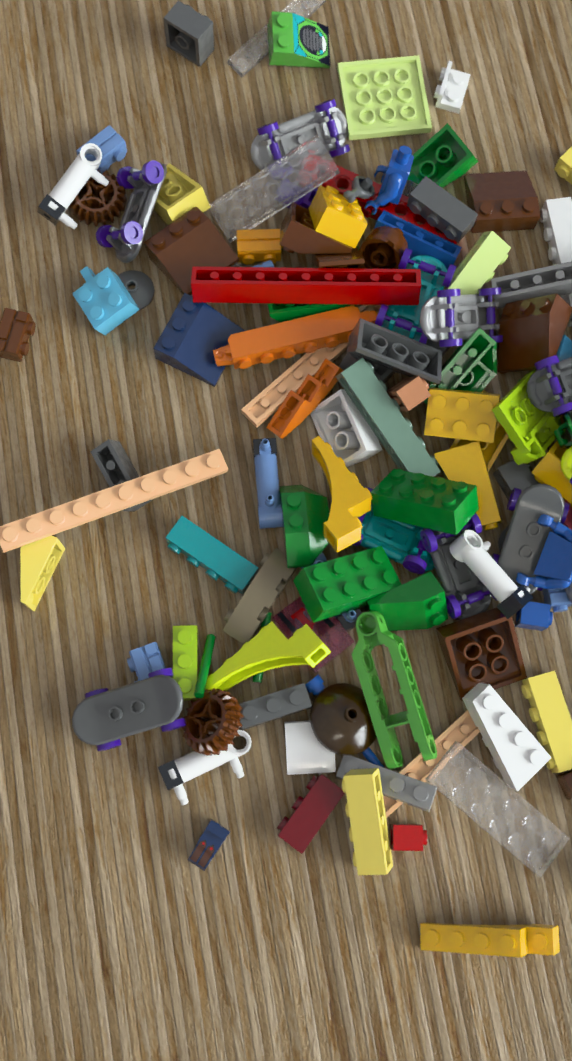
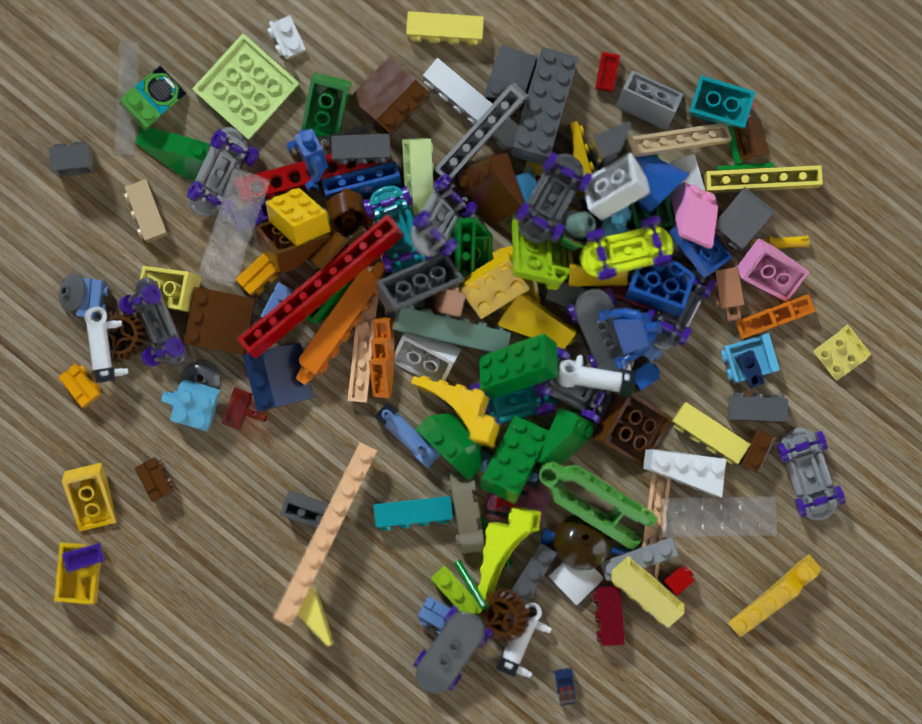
camera: 35 degrees left, 10 degrees up
(24, 209) = (80, 385): none -> light orange brick
(90, 131) = (72, 292): none -> dark grey dish
(139, 338) = (238, 409): none -> clear red plate
(212, 122) = (145, 211): none -> tan brick
(279, 95) = (175, 151): none -> green wedge
(361, 188) = (295, 180): dark grey piece -> none

